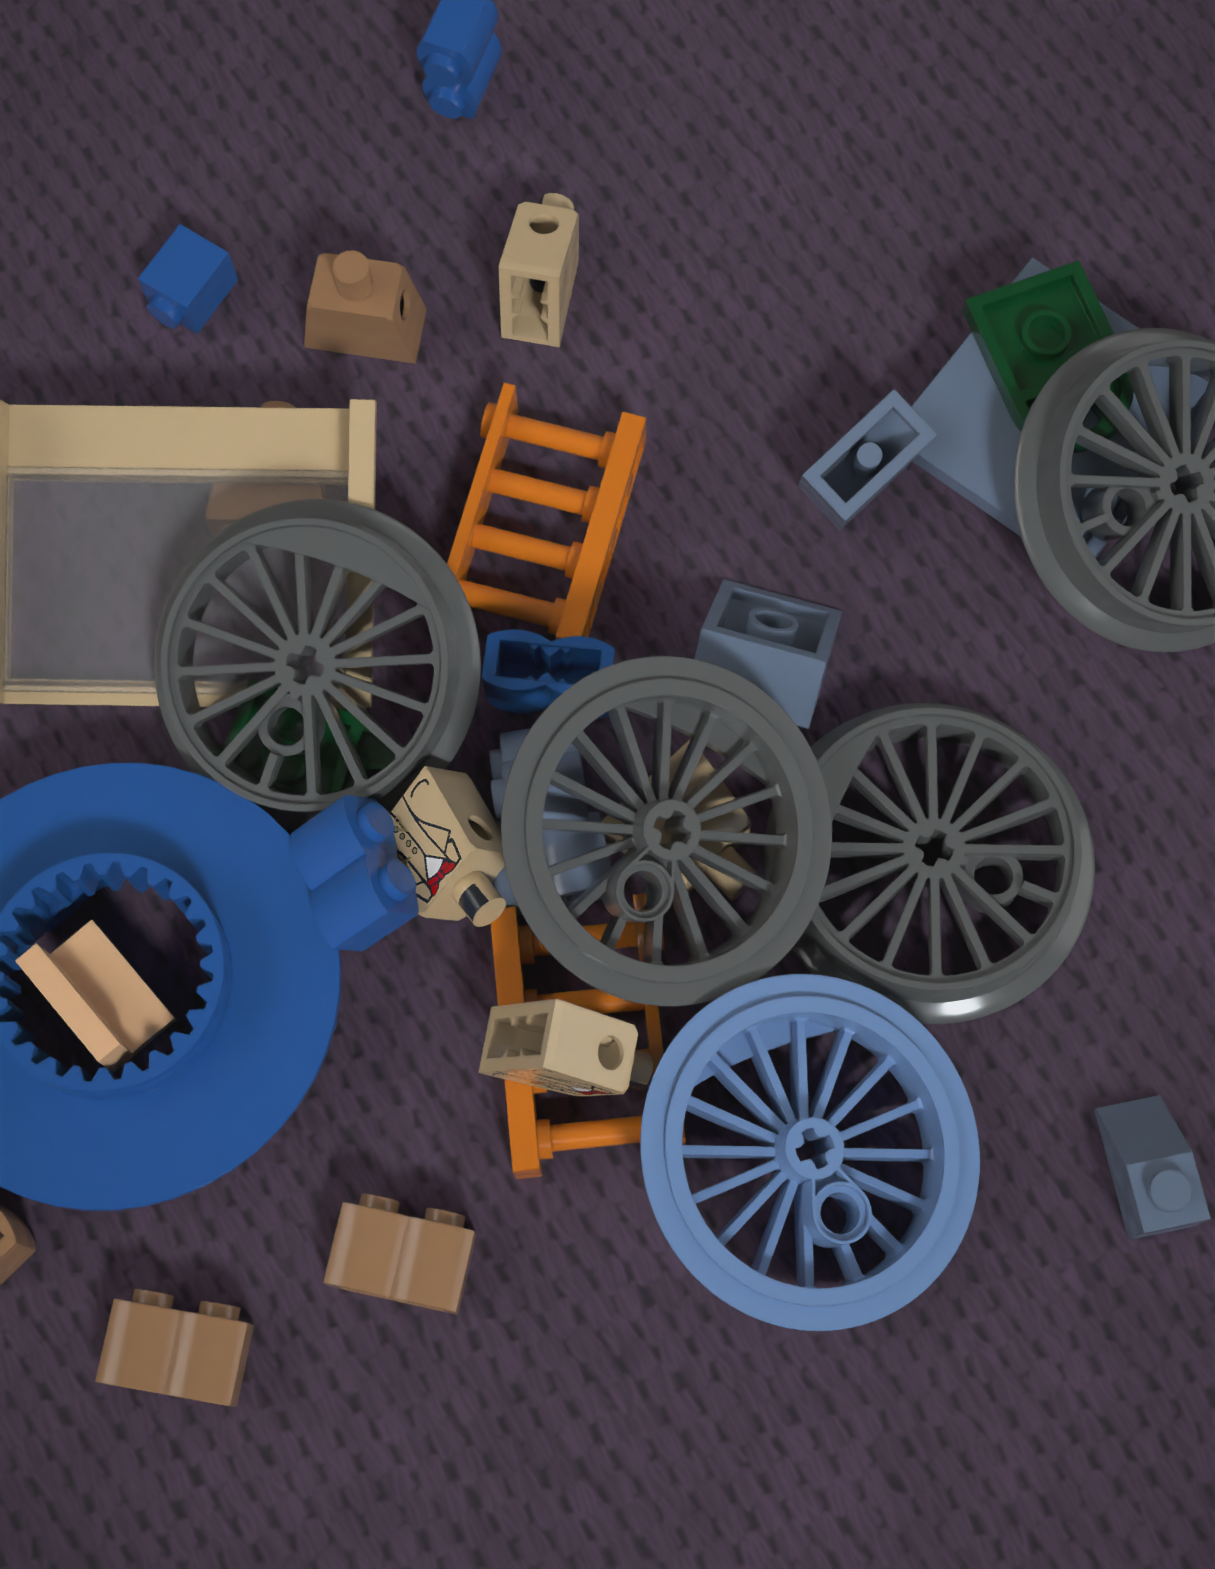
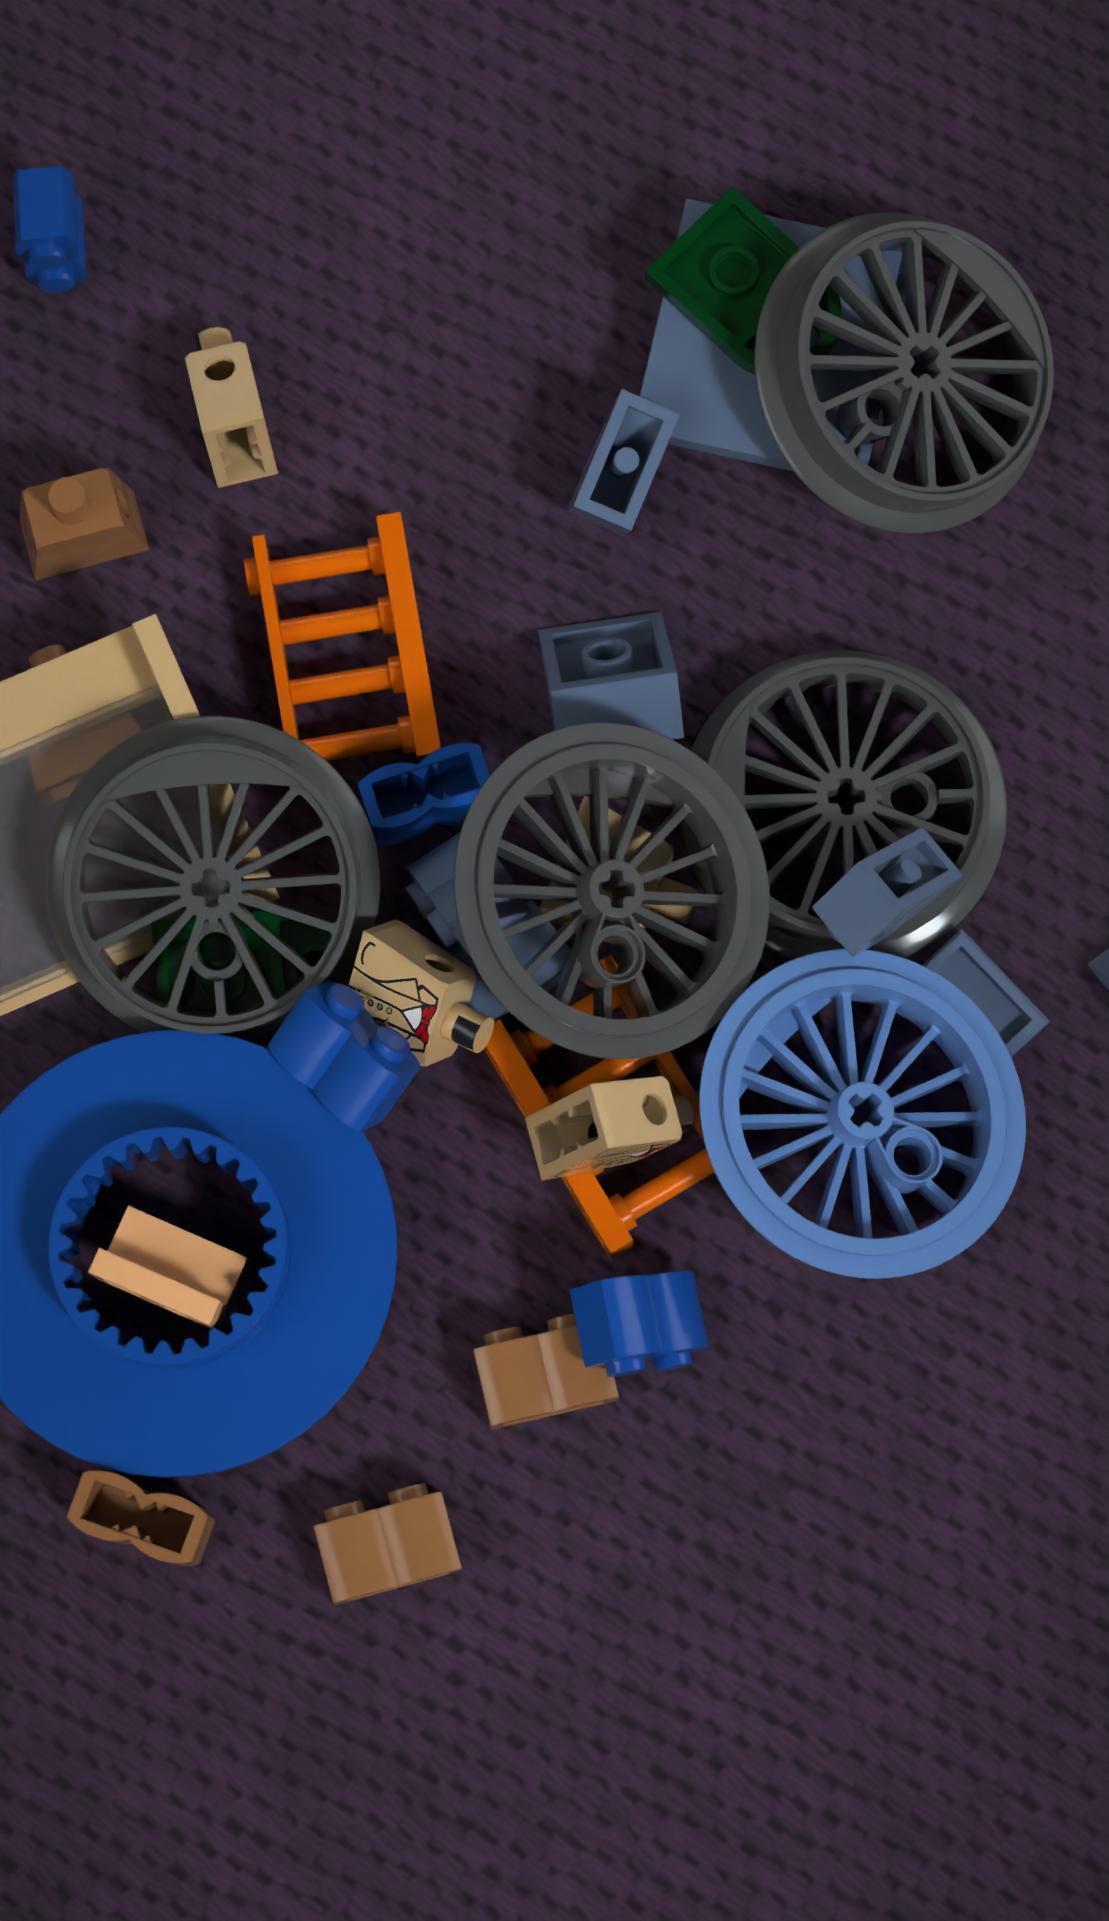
camera: 25 degrees left, 5 degrees up
(508, 1248) = (639, 1321): none -> blue brick
(929, 949) = (886, 891): none -> sand blue slope
(989, 1090) = (990, 989): none -> sand blue tile

